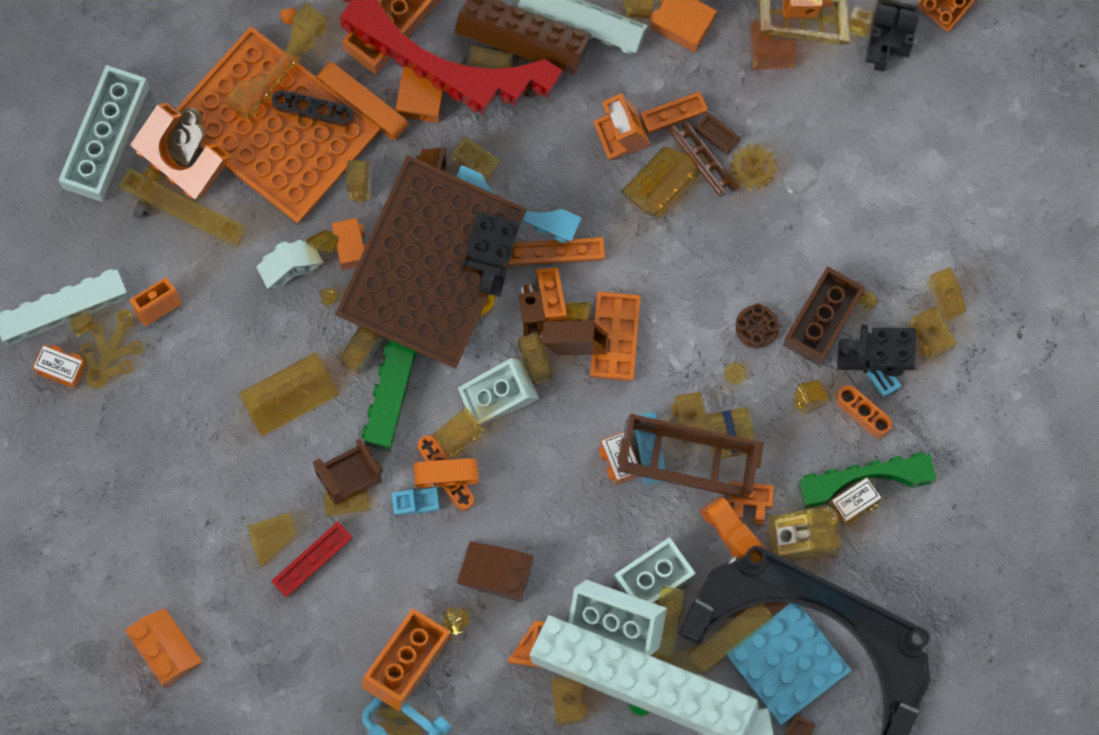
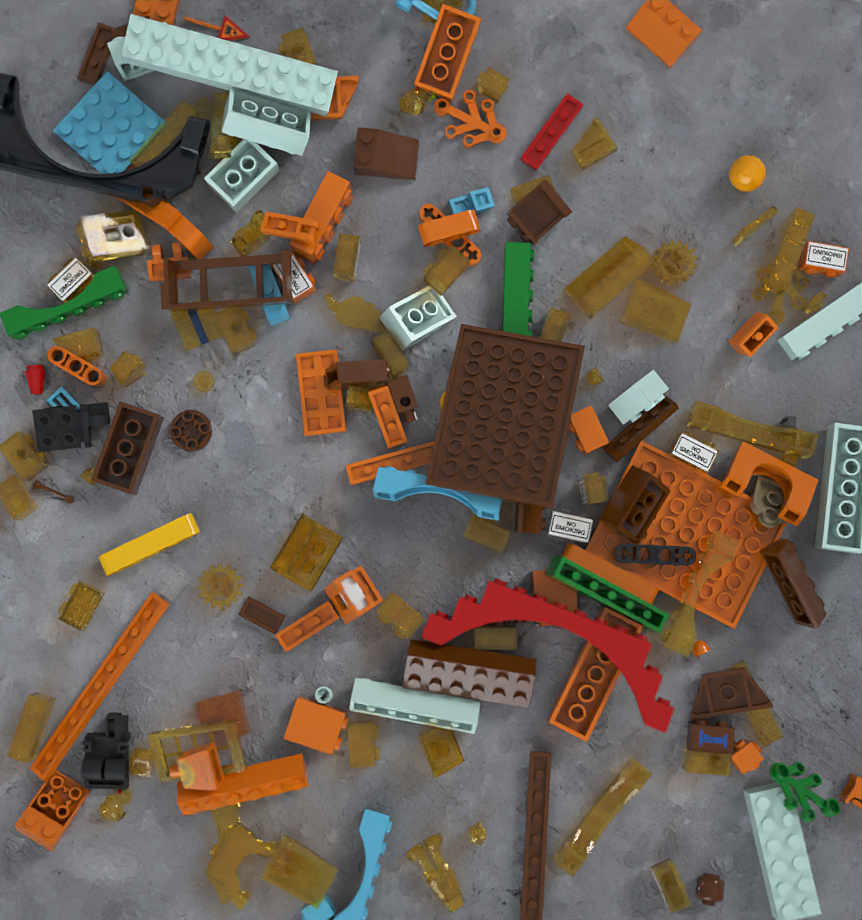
camera: 165 degrees right, 10 degrees up
(83, 394) = (788, 255): none -> clear yellow arch
(116, 469) = (747, 173): none -> light orange piece
(124, 410) = (754, 226): none -> clear yellow tile
(181, 53) = (794, 583): none -> reddish brown slope
(207, 395) = (683, 259): none -> clear yellow gear
(247, 200) = (693, 452): none -> brick
(249, 349) = (655, 311): none -> clear yellow slope
(299, 230) = (640, 429): none -> reddish brown plate
(320, 158) = (635, 504): none -> reddish brown slope
(323, 241) = (612, 422): clear yellow slope -> none
(363, 623) = (492, 84): none -> clear yellow brick
(371, 77) = (606, 593): none -> green brick
(388, 152) = (569, 526): none -> brick
(393, 587) = (472, 121): none -> orange plant
(490, 248) = (451, 430): black plate -> none
(560, 467) = (347, 257): none -> clear yellow brick
(562, 411) = (356, 313): none -> clear yellow animal
(575, 100) = (400, 615): none -> clear yellow brick
(579, 509) = (328, 209): none -> orange brick
(613, 493) = (290, 227): none -> orange plate
(655, 511) = (250, 237): none -> clear yellow brick
(671, 50) = (320, 692): none -> light aqua hinge
(705, 169) = (258, 582): reddish brown bar -> none
(818, 221) = (149, 544): none -> yellow beam
(855, 433) = (83, 343): none -> clear yellow slope
(889, 97) = (99, 686): none -> orange plate
(894, 284) = (69, 499): none -> reddish brown hinge
(896, 176) = (81, 605): none -> clear yellow brick
(909, 410) = (35, 377): none -> red cone
(963, 71) = (31, 727): none -> clear yellow brick

